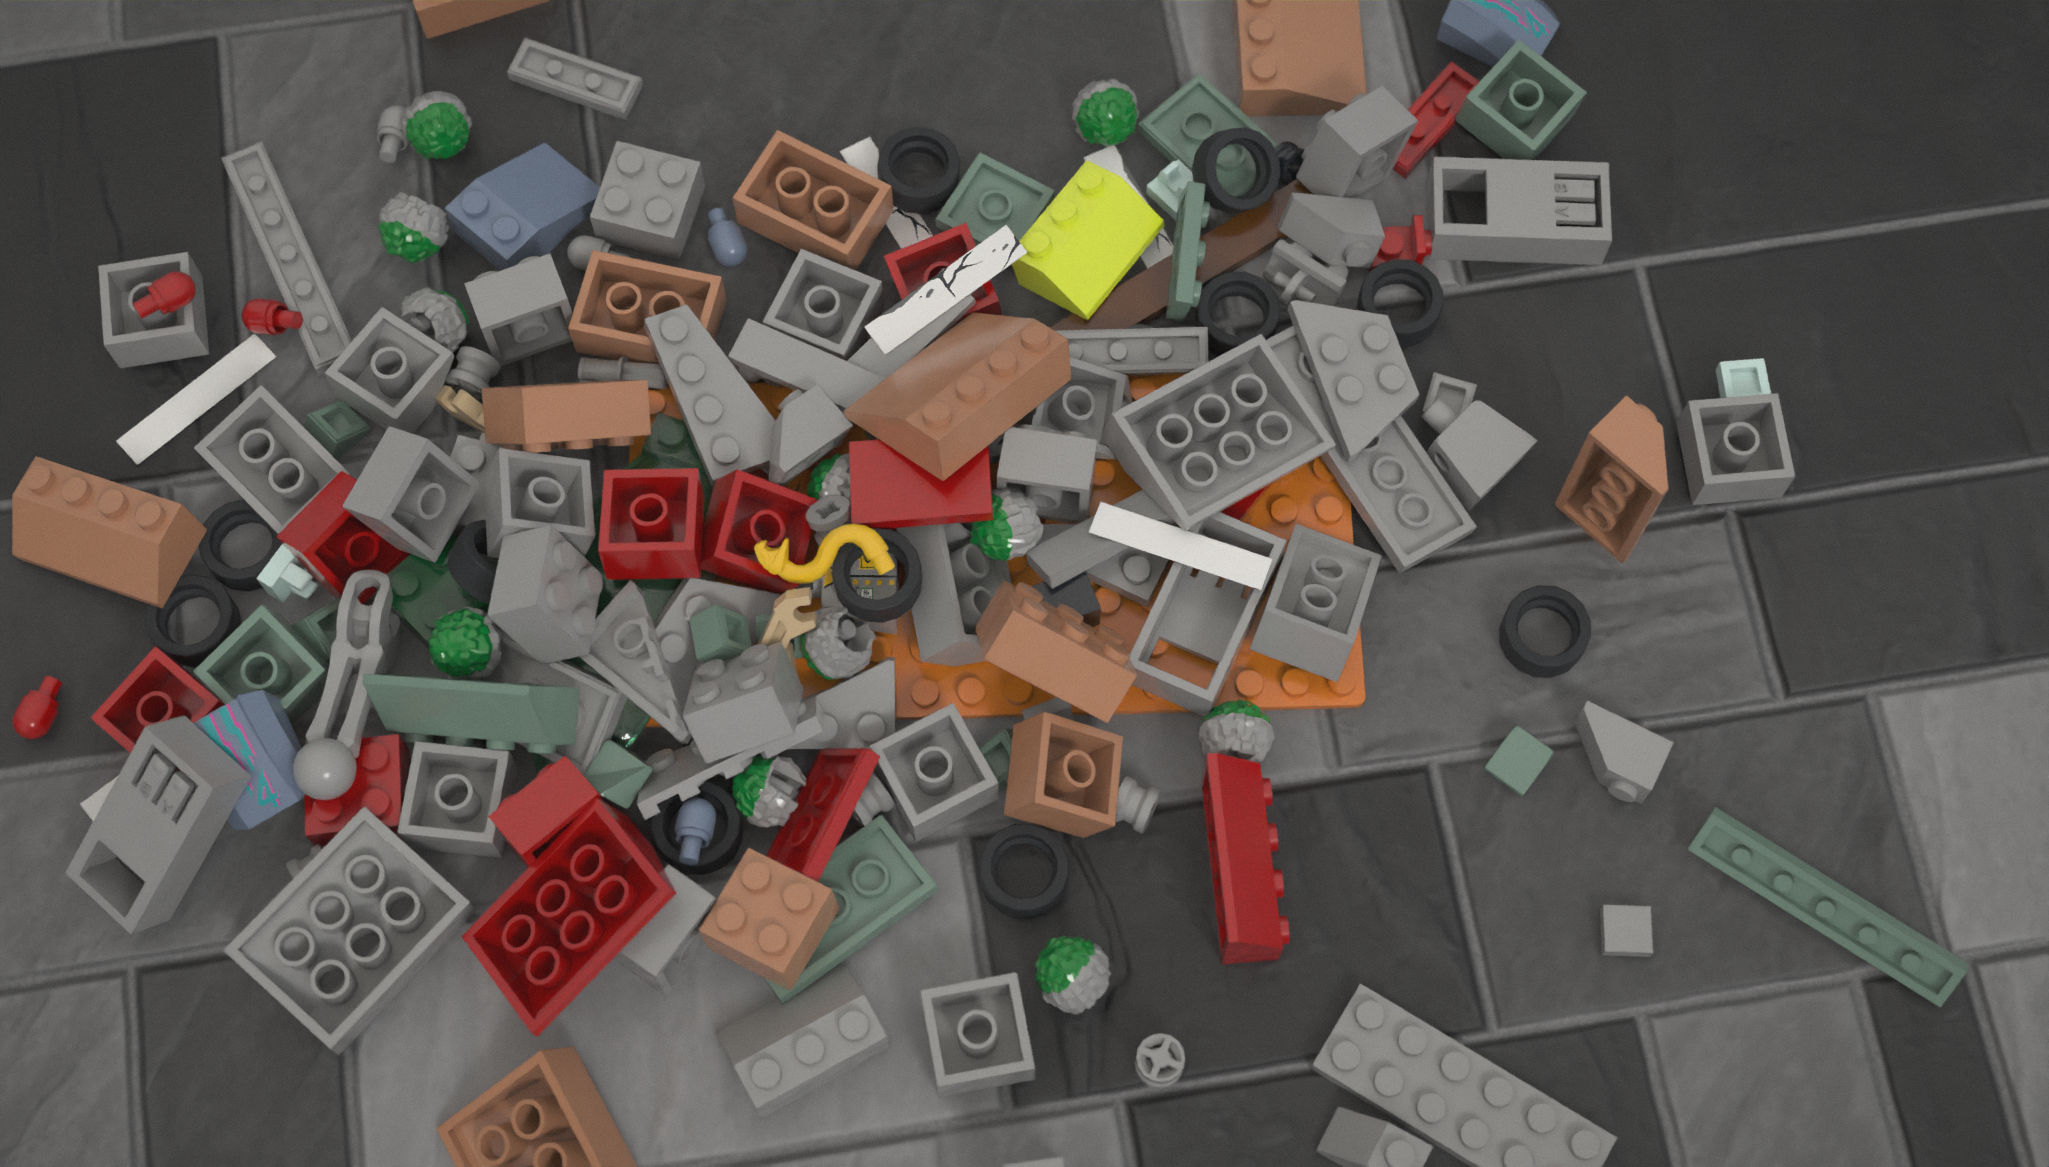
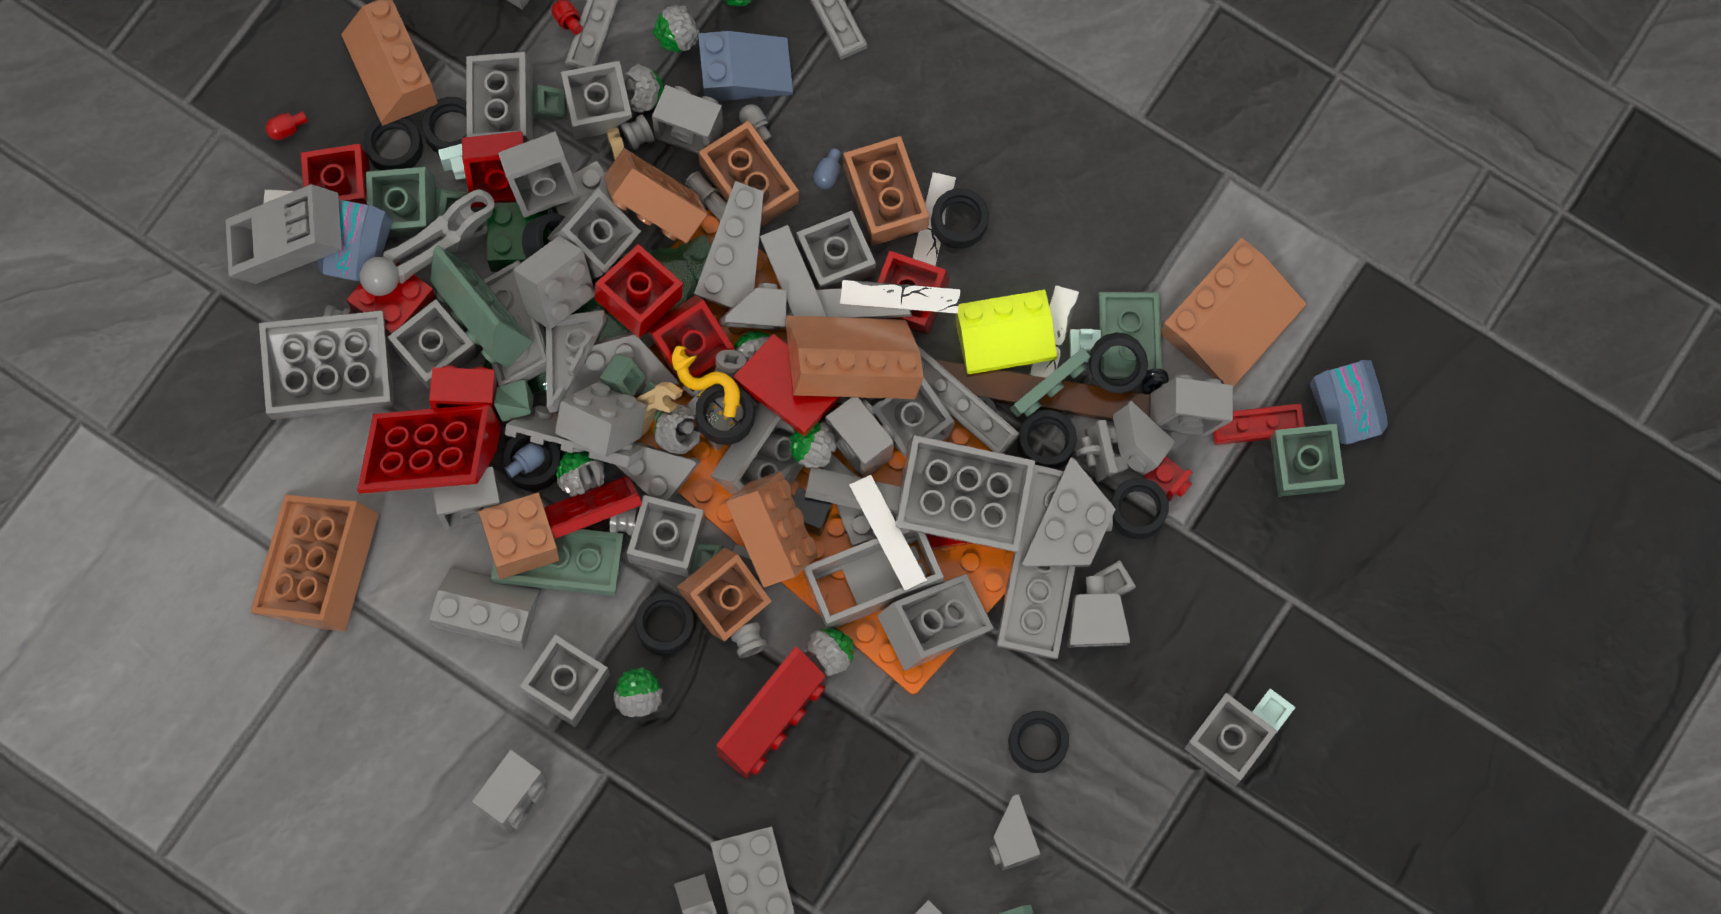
camera: 40 degrees right, 5 degrees up
(196, 399) = (497, 28): white sticker -> none
(465, 644) = (497, 273): green piece -> none
(647, 200) = (806, 115): light grey brick -> none
(992, 198) = (980, 271): sand green plate -> none
(1105, 112) = (1085, 271): green piece -> none
(1163, 1052) = (637, 768): light grey wheel -> none
(1519, 760) = (959, 793): sand green slope -> none
(1523, 210) = (1249, 516): light grey piece -> none
(1617, 478) = (1139, 693): nougat slope -> none

